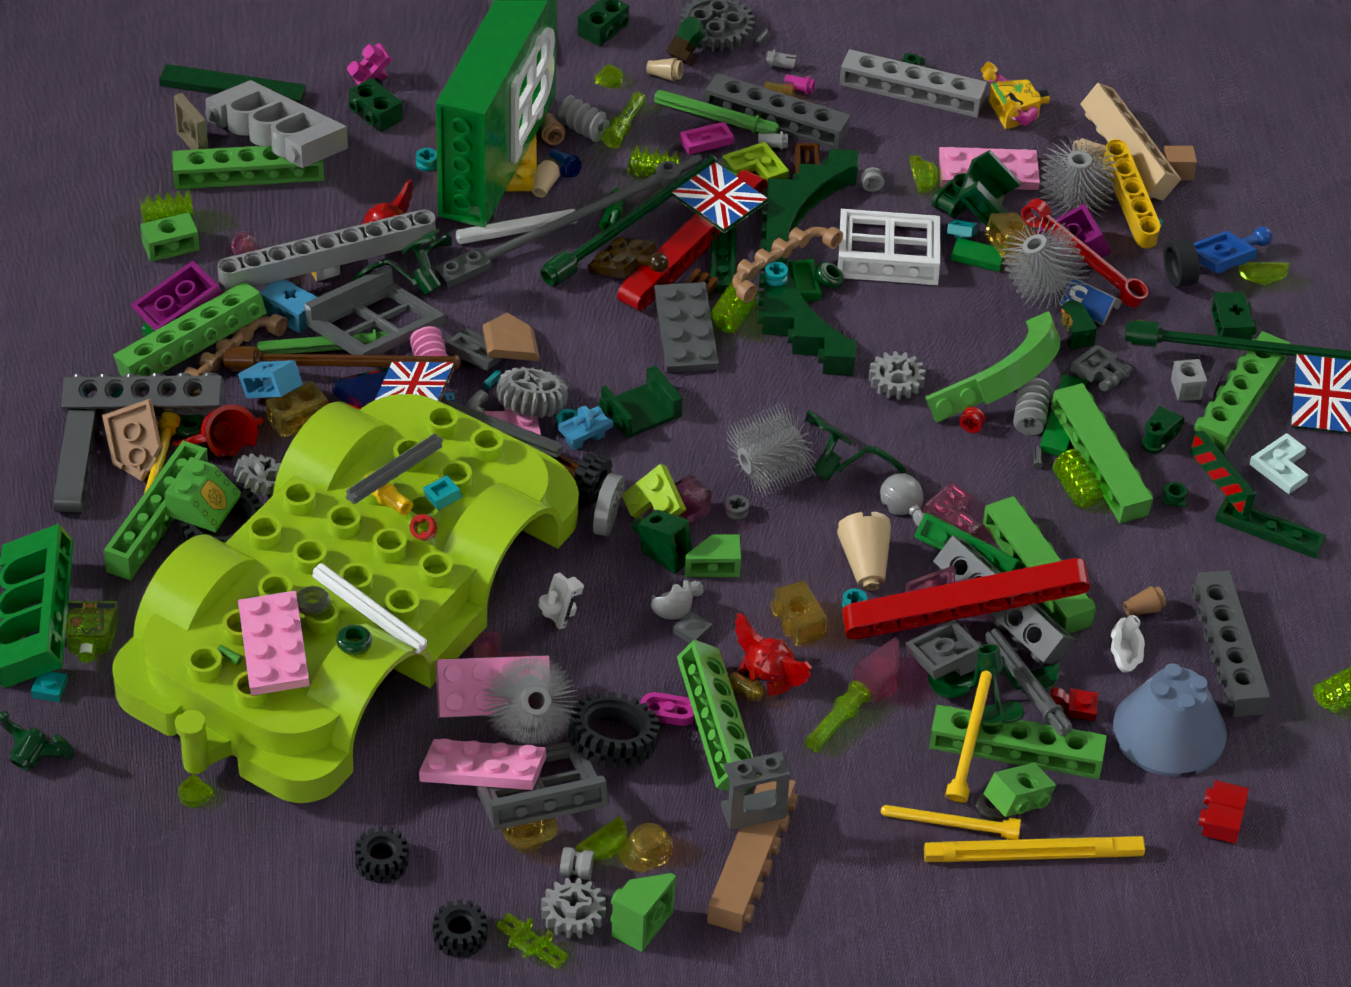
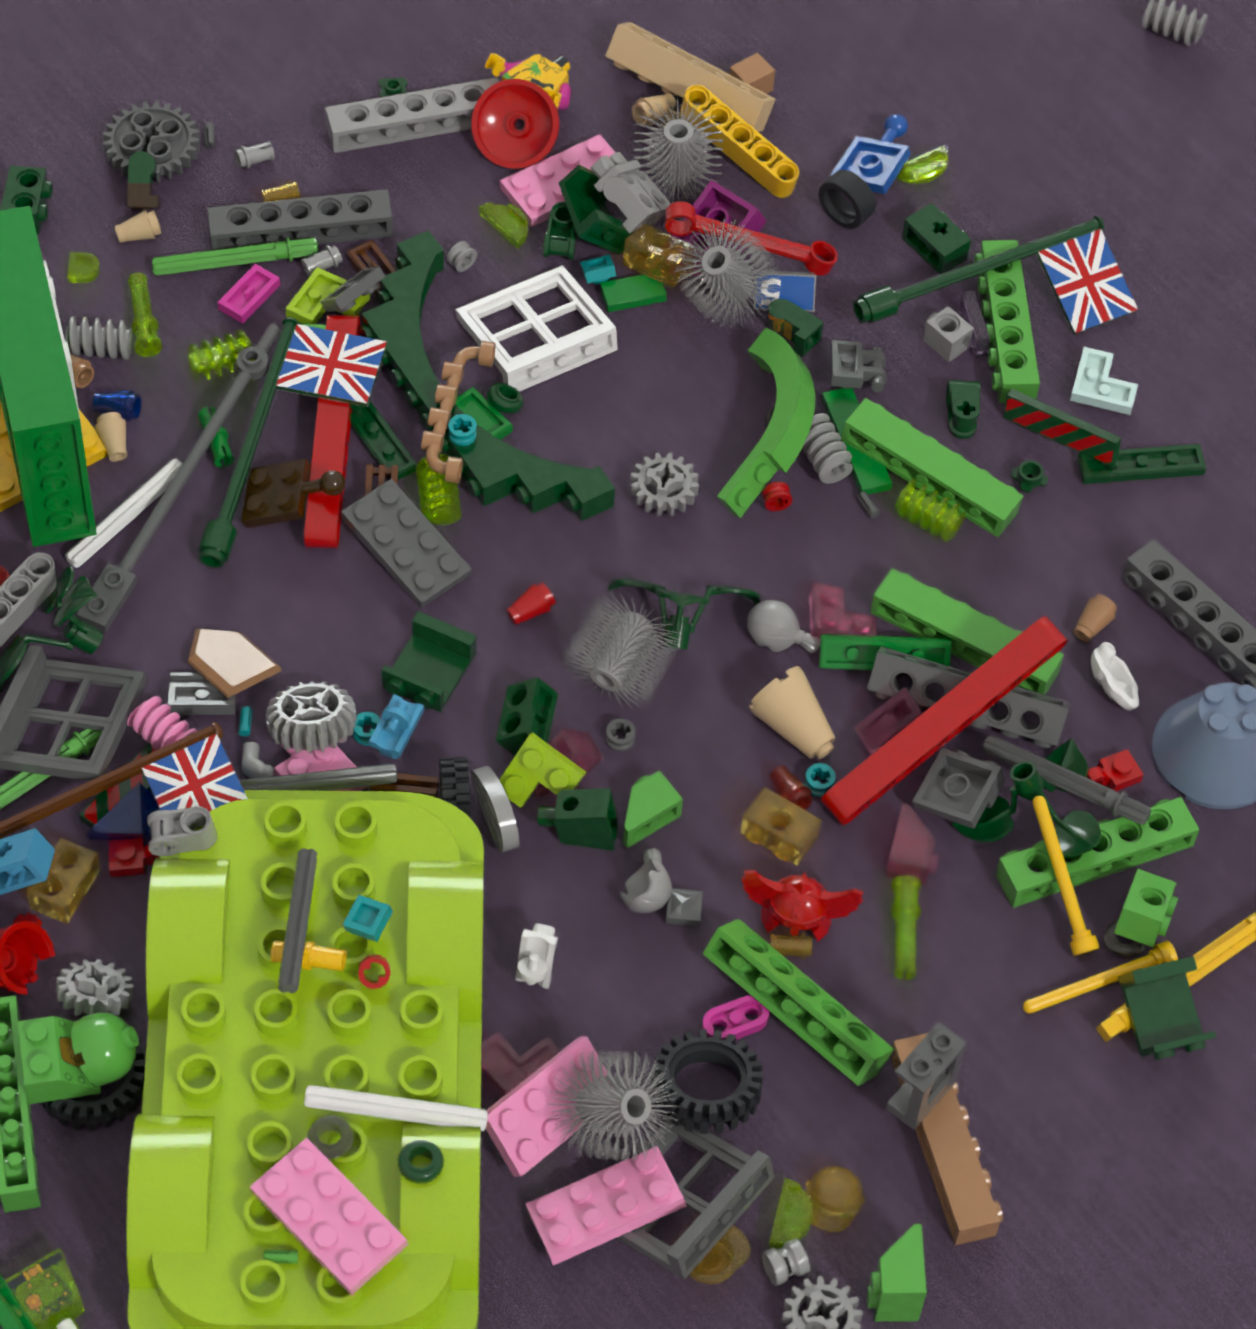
camera: 35 degrees left, 10 degrees up
(232, 501) = (105, 1045): none -> bright green cylinder
(373, 392) = (178, 831): none -> light grey piece
(681, 458) = (526, 710): none -> dark green brick
(741, 402) = (532, 603): none -> red cone
(785, 162) = (360, 284): none -> dark grey plate
(801, 84) = (299, 173): dark pink pin -> none
(827, 595) = (791, 787): none -> clear red cone
(967, 106) = (496, 118): none -> red dish
(979, 855) = (1163, 1009): none -> dark green panel
(1017, 182) = (630, 190): none -> light grey hips

